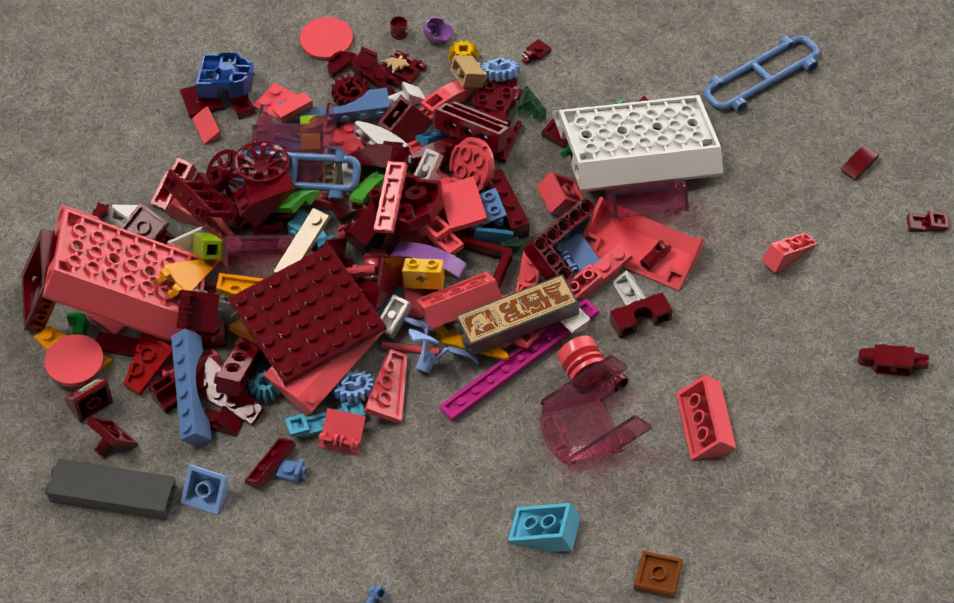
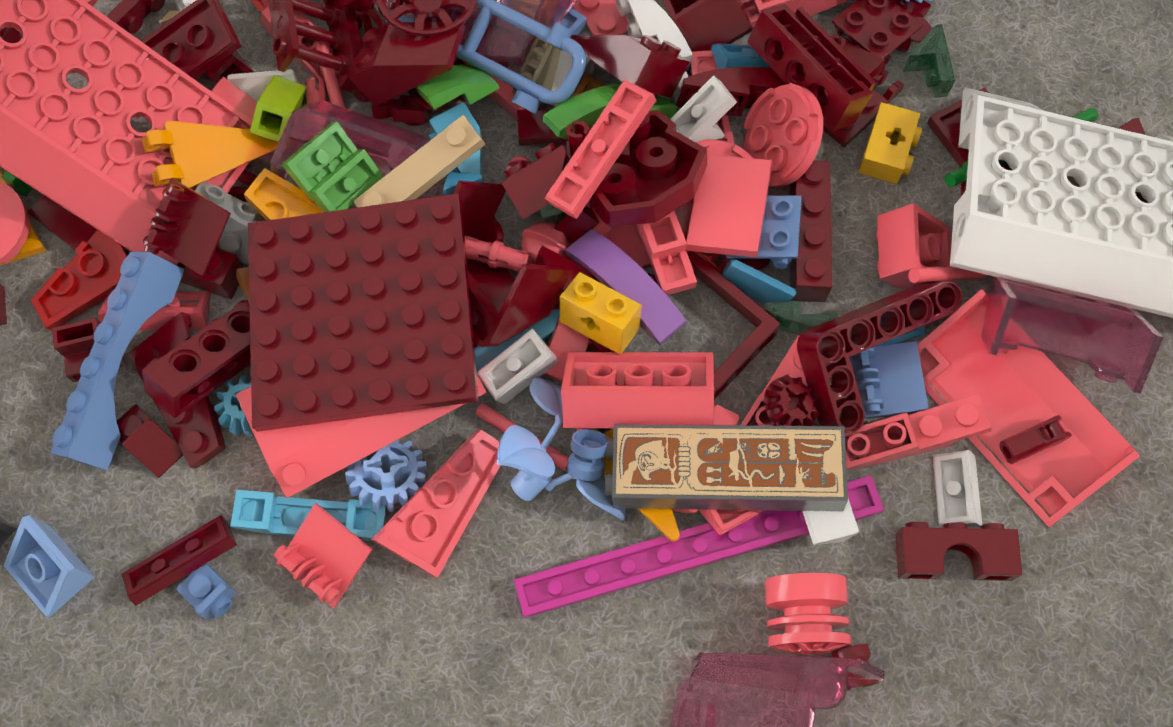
camera: 25 degrees right, 15 degrees up
(256, 260) = (332, 169): none -> bright green slope
(448, 336) = (588, 453): none -> medium blue wheel
(526, 276) = (779, 396): none -> dark red gear
(527, 151) = (887, 160): none -> yellow brick
(575, 199) = (946, 273): none -> coral bar

